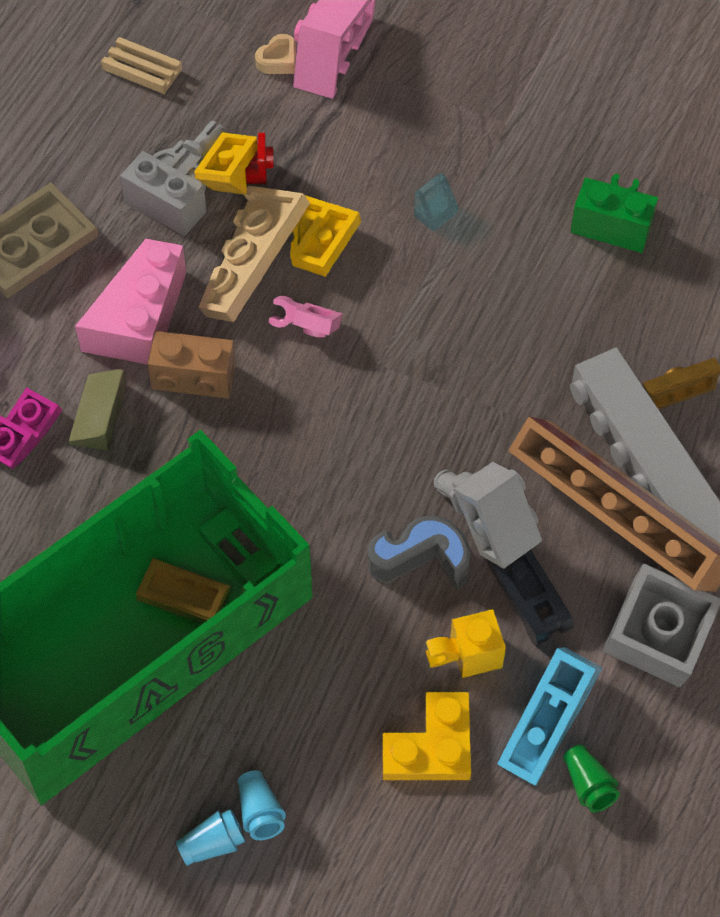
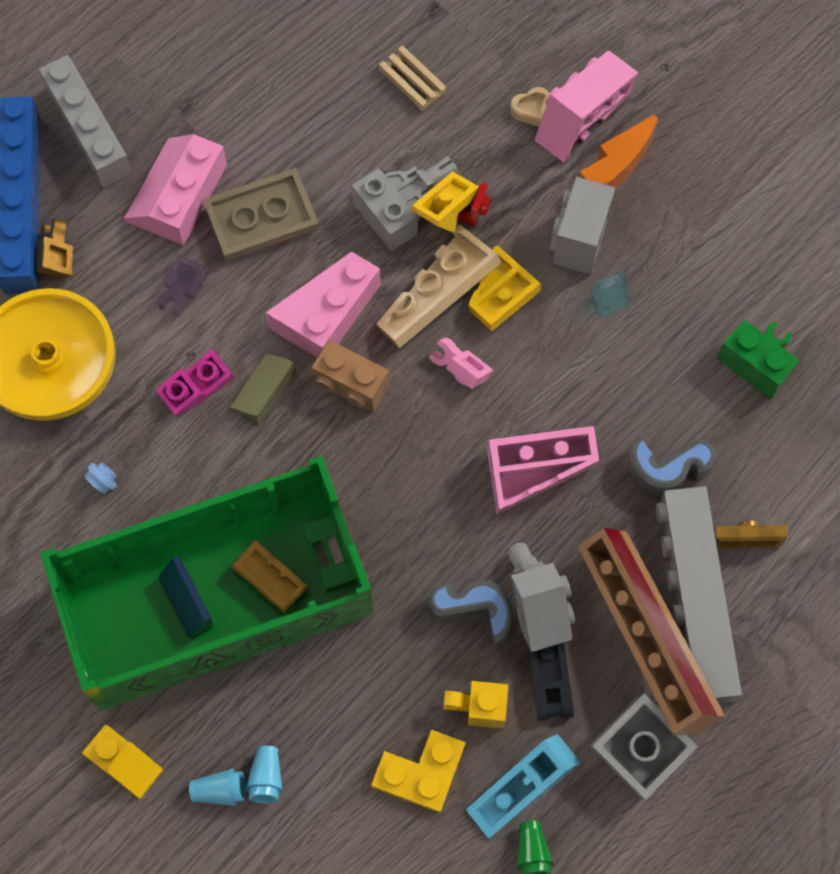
camera: 20 degrees right, 10 degrees up
(88, 849) = (123, 761): none -> yellow slope
(96, 645) = (185, 598): none -> slope
(379, 142) = (581, 224): none -> light grey brick
(387, 78) = (621, 154): none -> orange slope
(428, 383) = (538, 462): none -> bright pink wedge
(557, 360) = (671, 473): none -> dark grey animal

